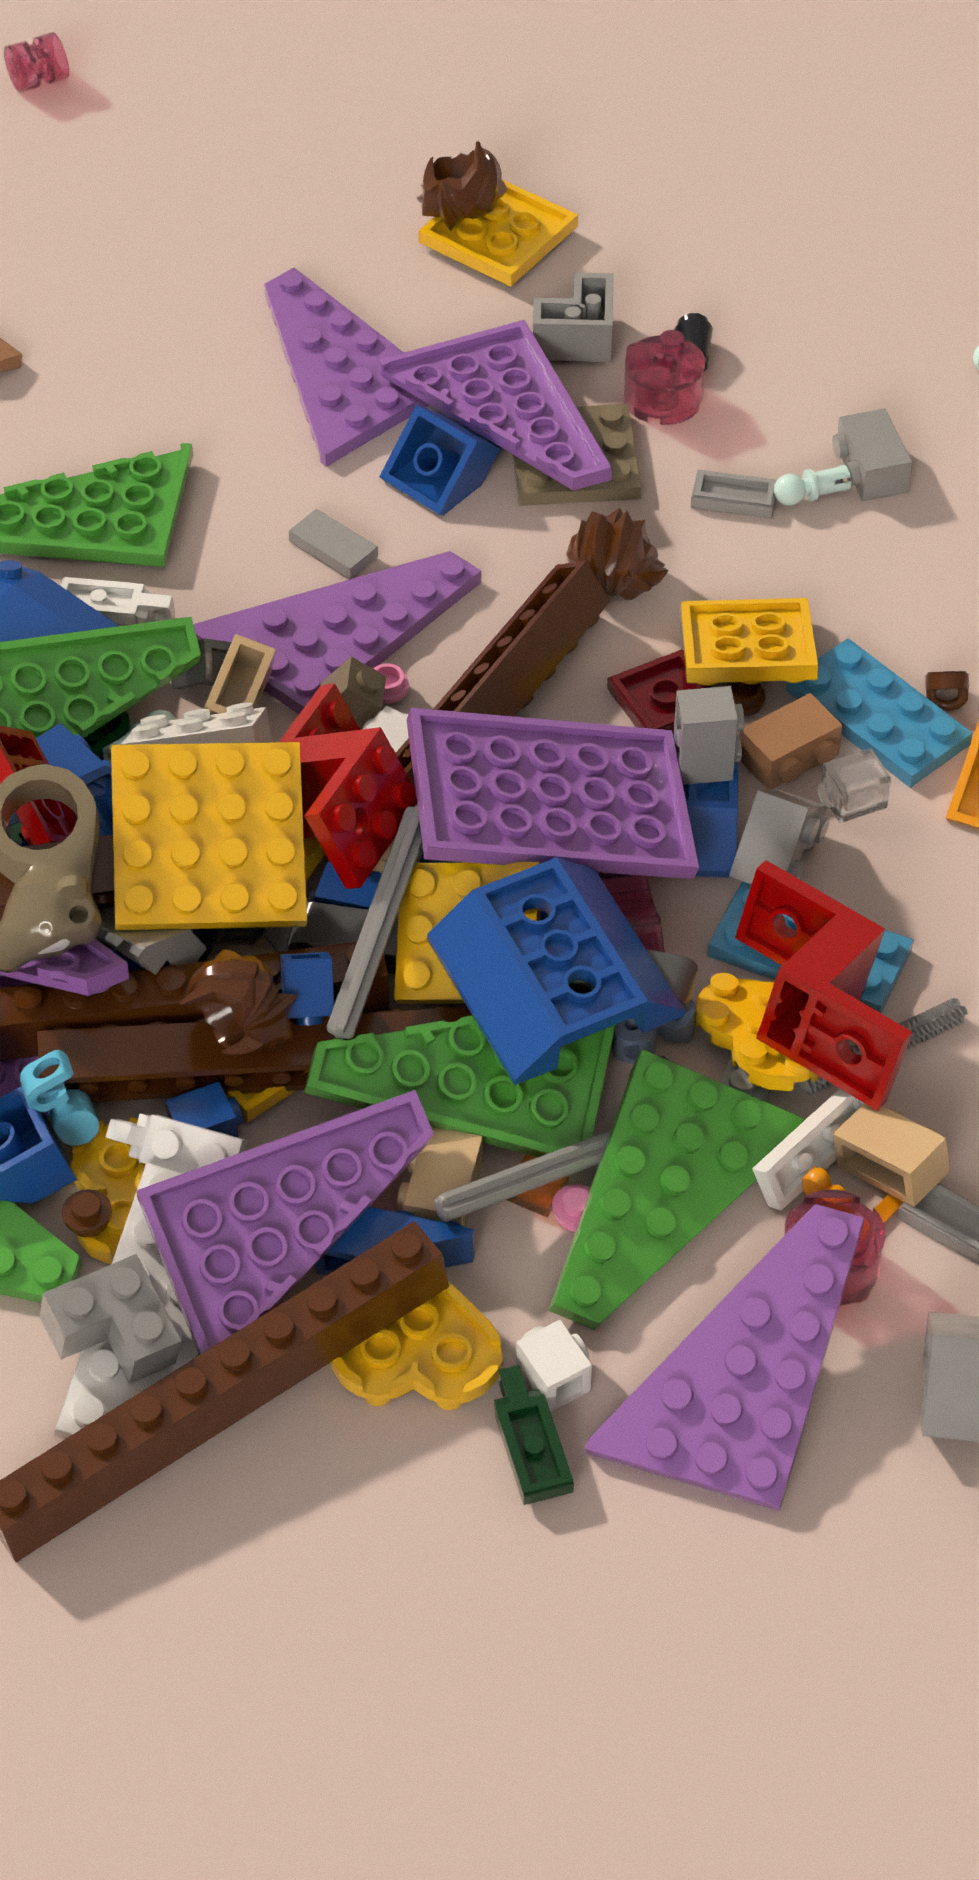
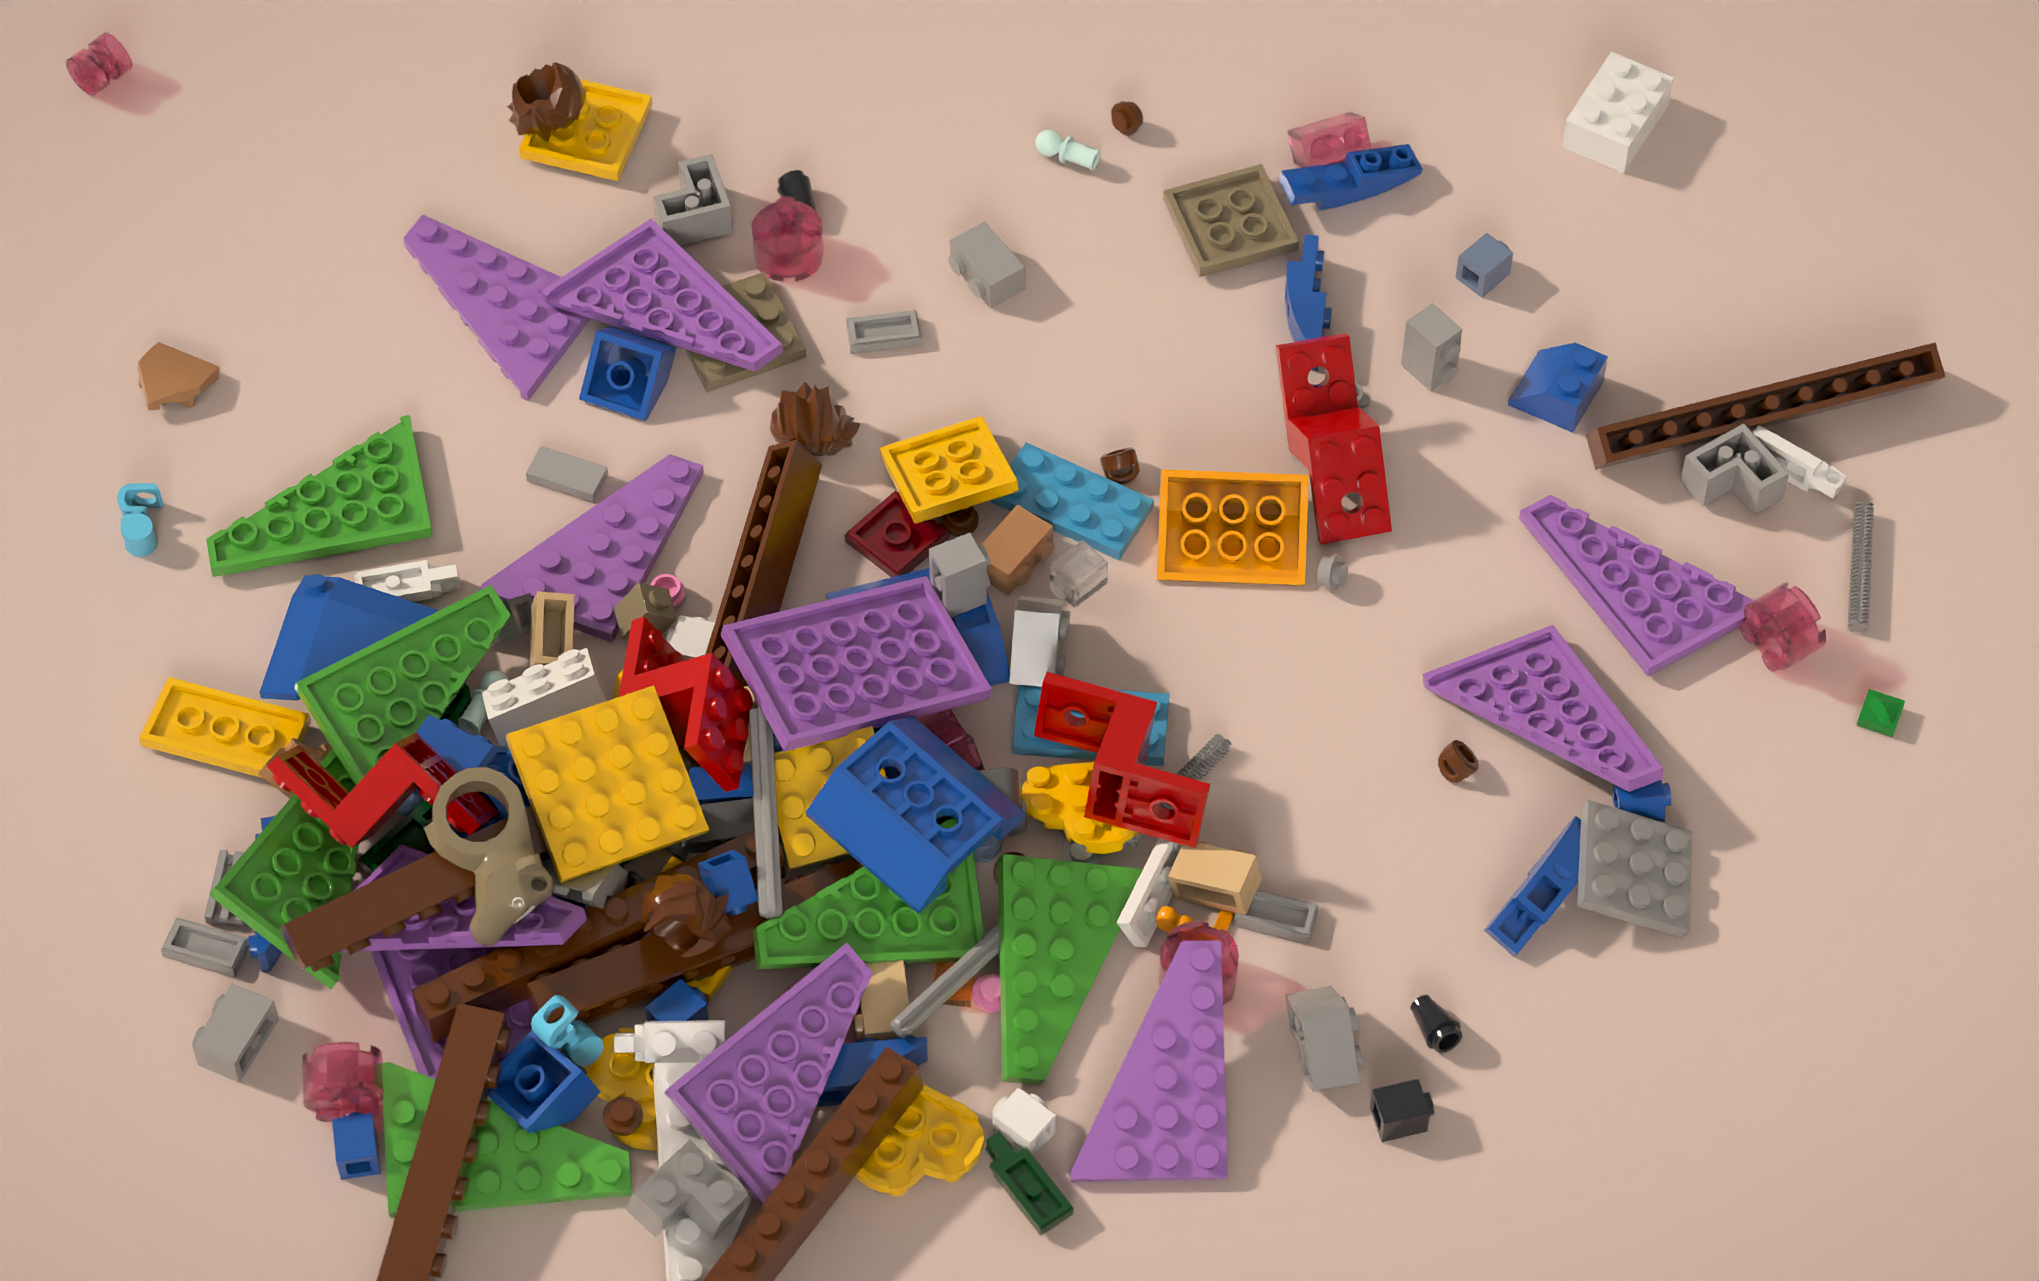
camera: 20 degrees left, 5 degrees up
(791, 488) = (931, 315): light aqua pin -> none

